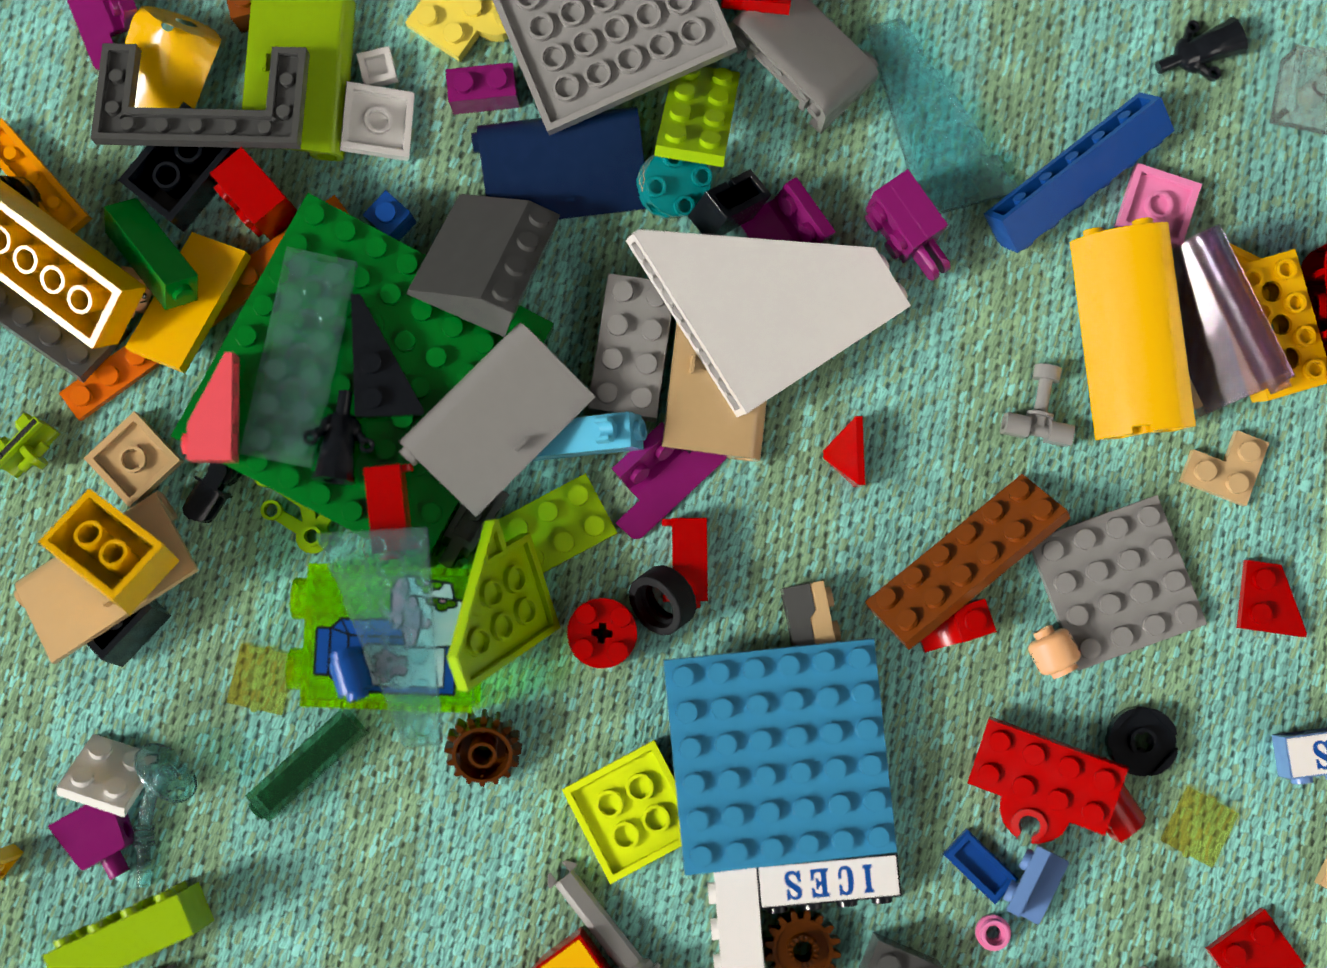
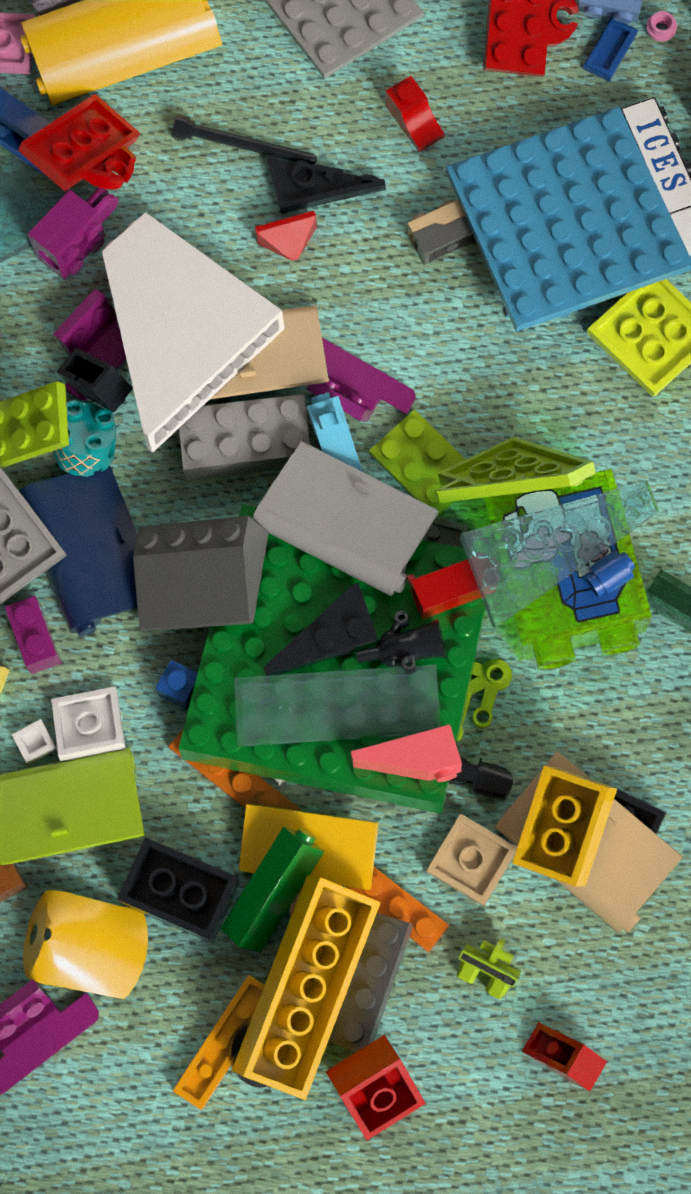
camera: 100 degrees left, 10 degrees down
(121, 123) = (156, 943): dark grey plate -> none
(253, 195) = (190, 809): red brick -> none
(259, 680) = (639, 685): clear yellow piece -> none
(483, 731) = (640, 460): reddish brown gear -> none
(587, 645) = (511, 377): red brick -> none
(674, 588) = (446, 344): black tyre -> none
(690, 553) = (423, 340): red brick -> none
(903, 485) = (308, 186): none -> black wing
(967, 560) = (357, 116): dark orange plate -> none
(1002, 256) = (84, 145): none -> red plate
(1004, 376) = (187, 128): none -> black piece
(1040, 421) = (219, 92): light grey bar -> none
(1054, 651) = (413, 32): light nougat head -> none

